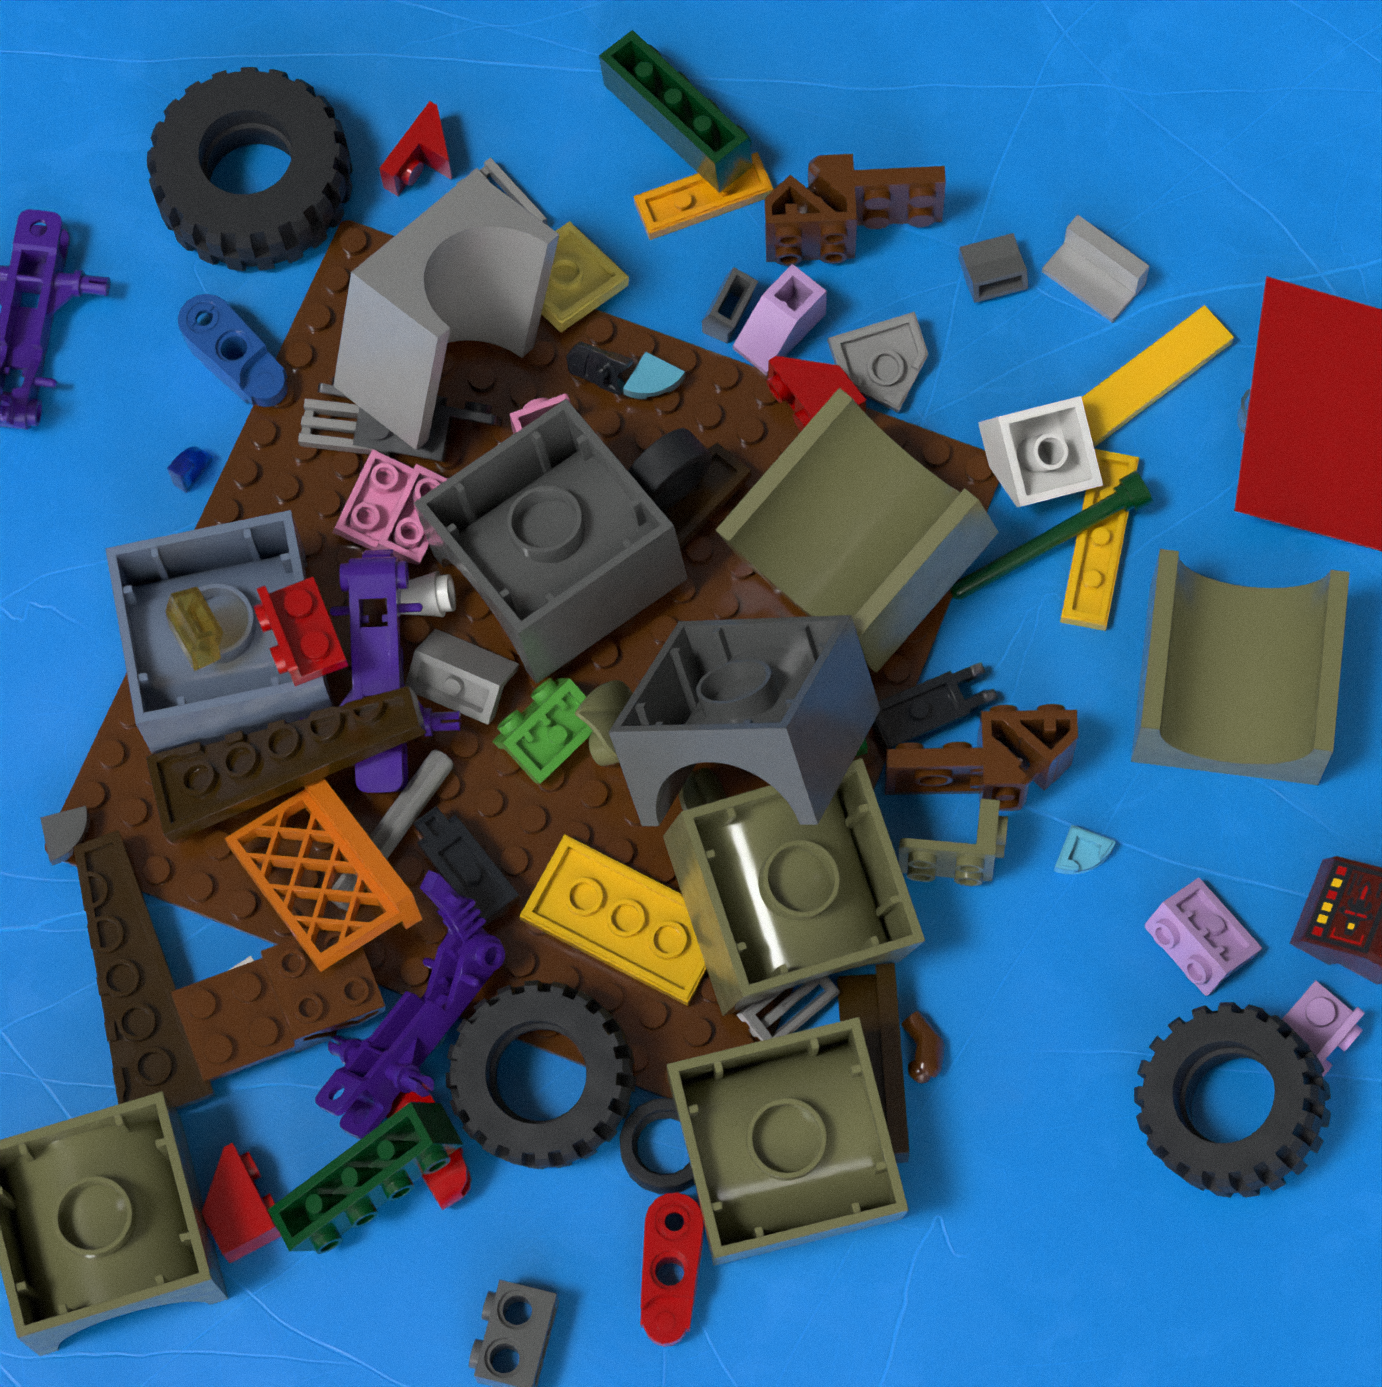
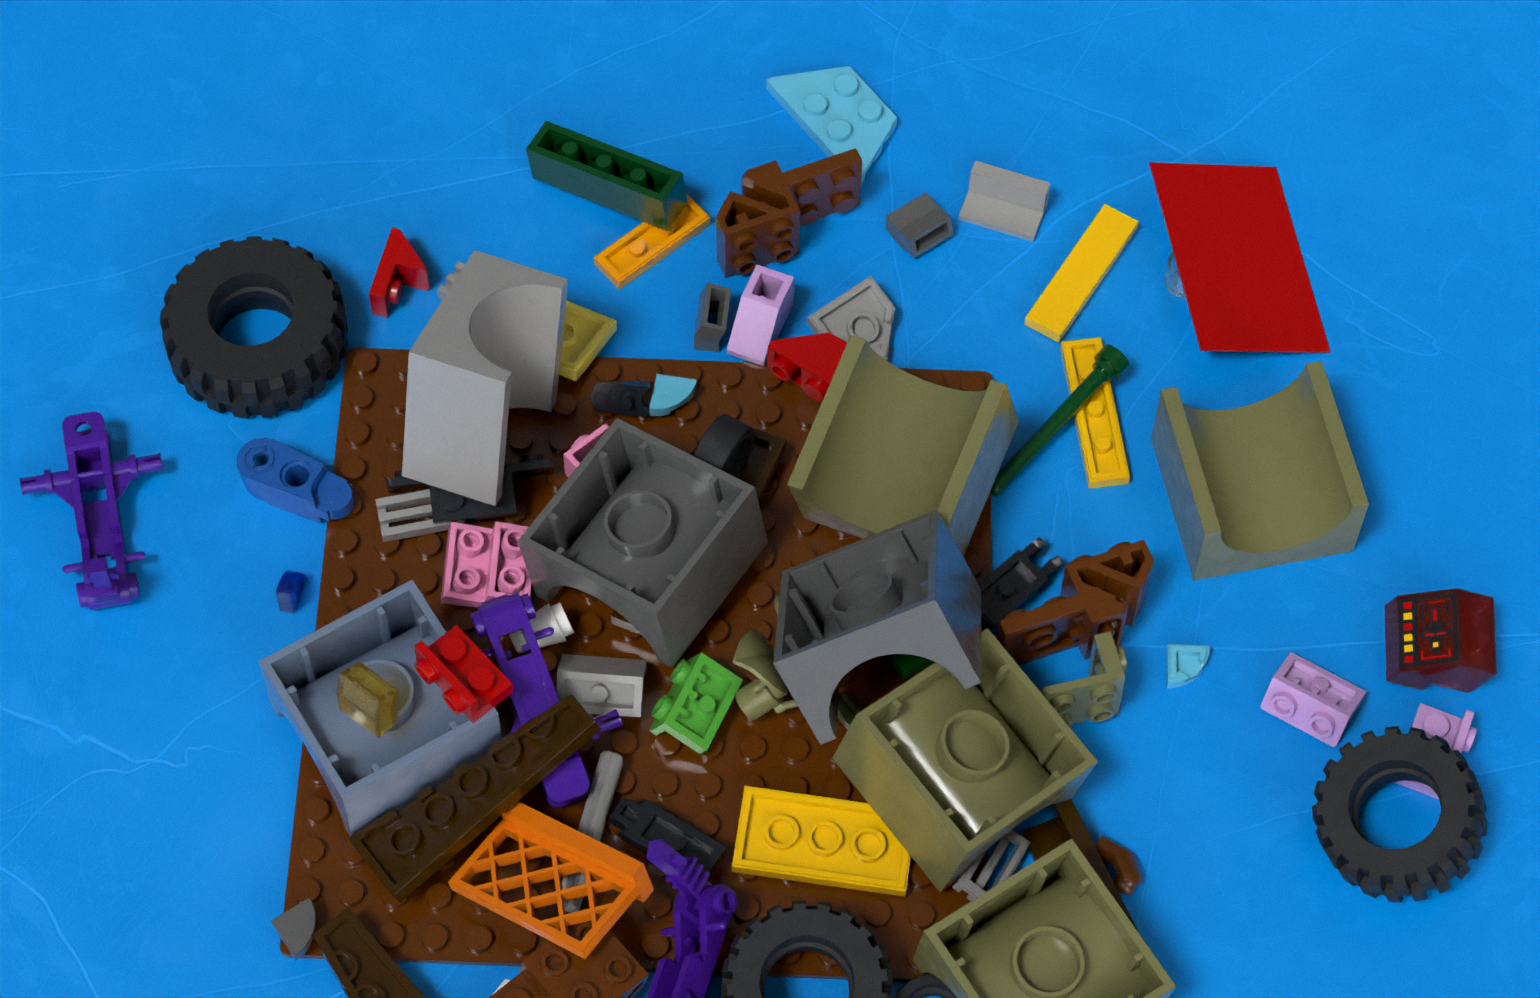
camera: 25 degrees left, 10 degrees down
(957, 112) = (836, 111): none -> medium azure wing
(1042, 452) = (1022, 351): white slope -> none

